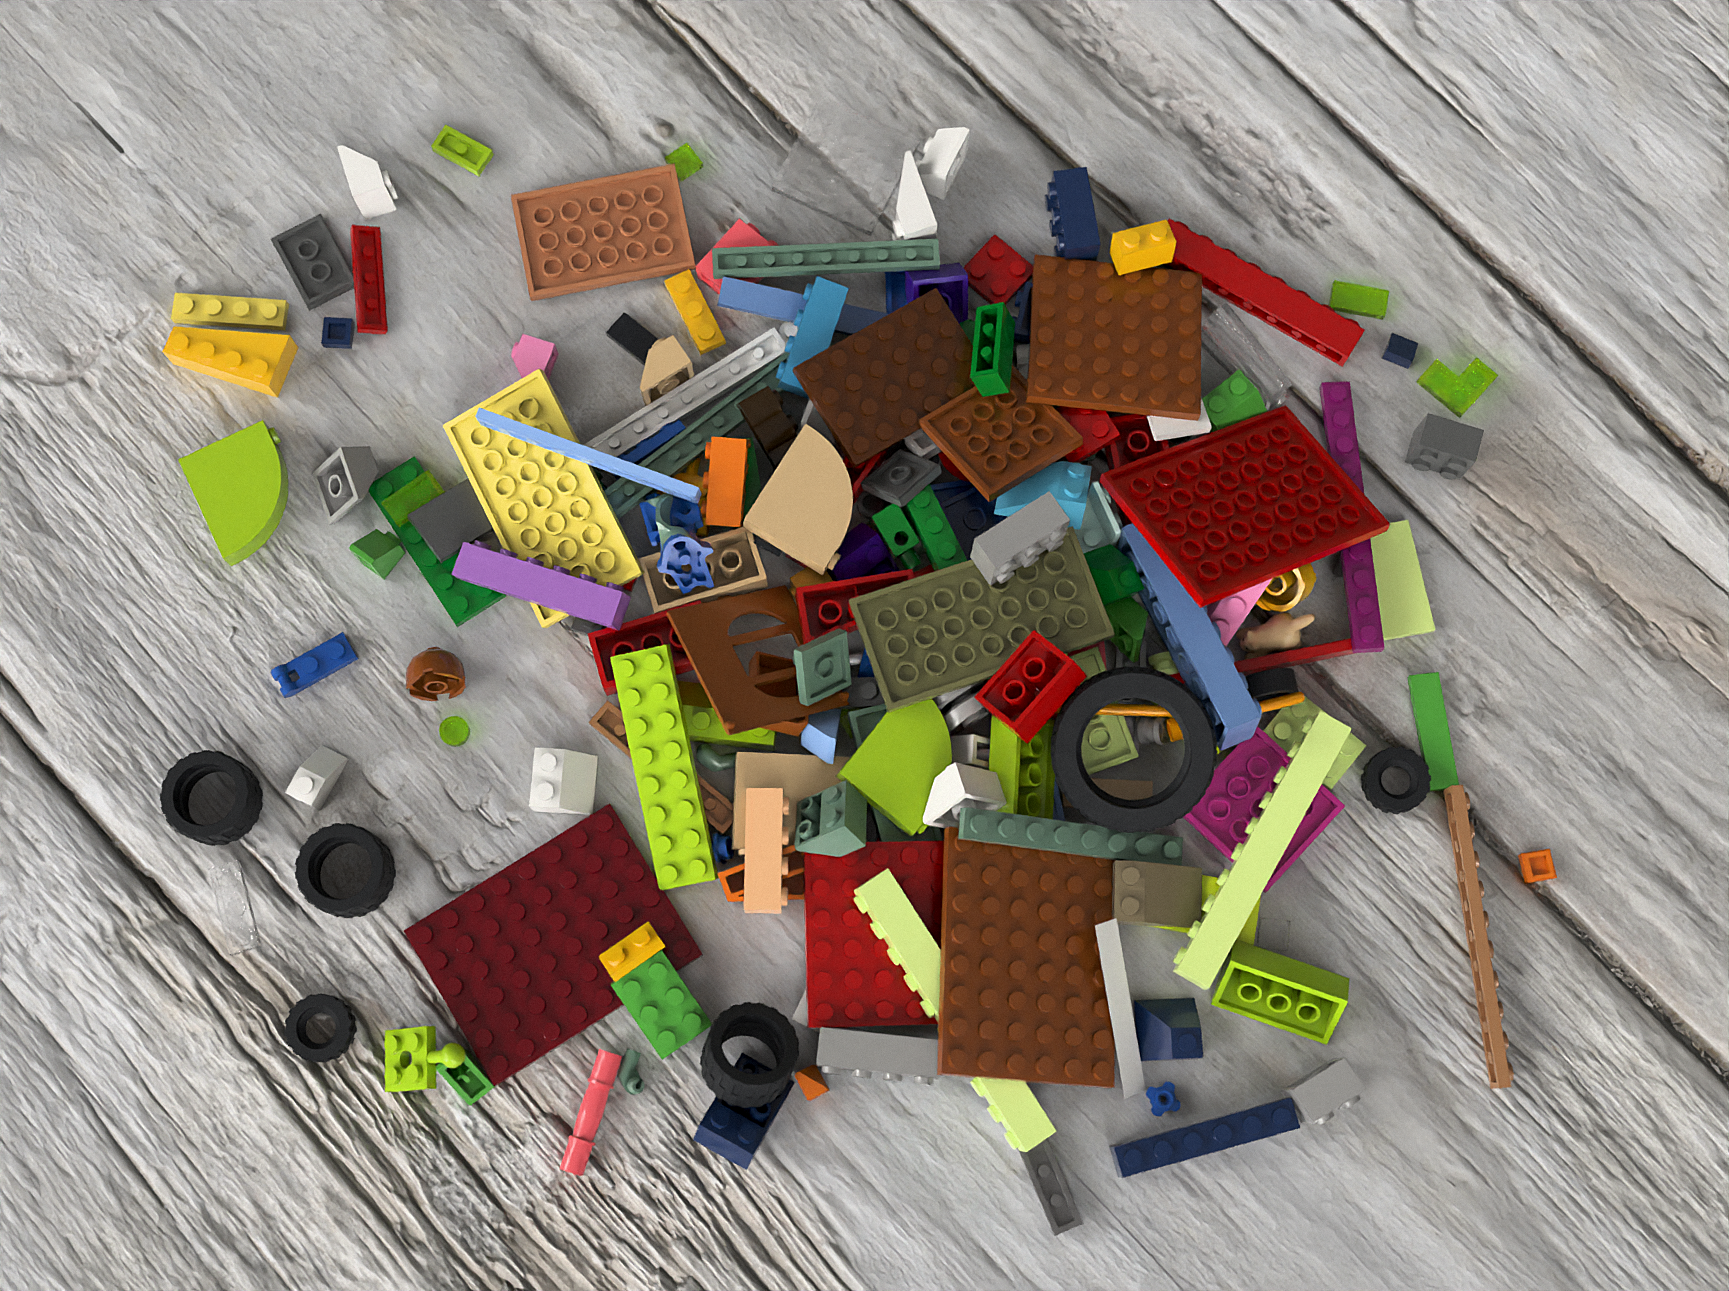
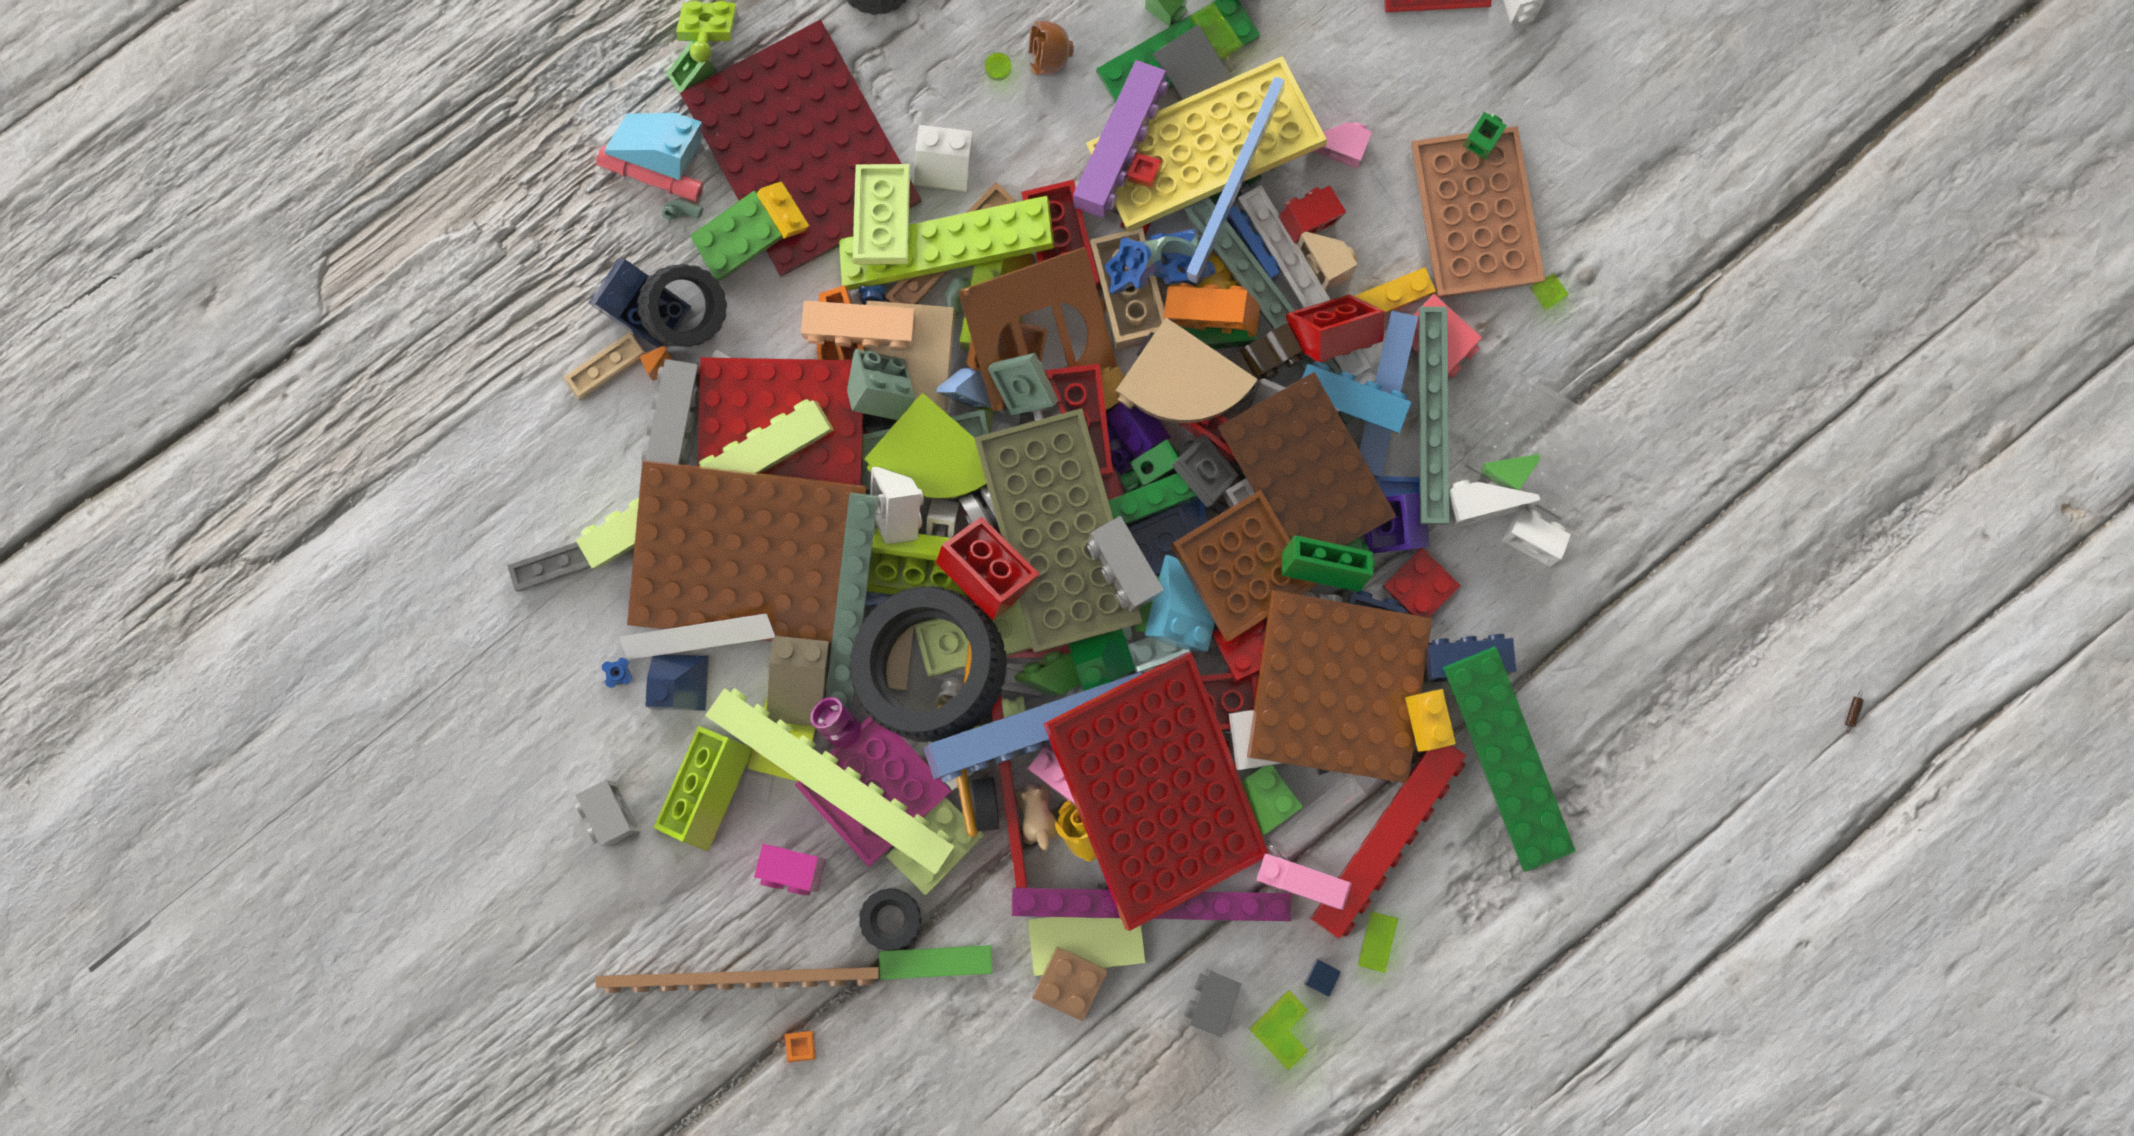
camera: 95 degrees right, 5 degrees up
(462, 150) = (1567, 83): lime plate -> none
(521, 212) = (1479, 144): none -> green brick
(554, 1107) = (657, 142): none -> medium azure slope
(577, 556) = (1144, 170): none -> red plate
(613, 391) = (1312, 213): none -> red brick
(632, 337) = (1369, 237): black tile -> none
(633, 839) = (881, 214): none -> yellowish green tile
(737, 356) = (1337, 327): none -> red slope
(816, 1145) = (604, 366): none -> tan tile
(880, 183) = (1511, 472): none -> bright green slope
(1169, 176) = (1509, 759): none -> green plate
(1198, 849) = (835, 722): none -> magenta wheel
(1204, 1137) = (578, 703): dark blue brick -> none
(1313, 364) = (1304, 881): none -> bright pink slope
(1364, 881) = (790, 868): none -> dark pink brick
(1439, 592) = (1069, 983): none -> medium nougat plate

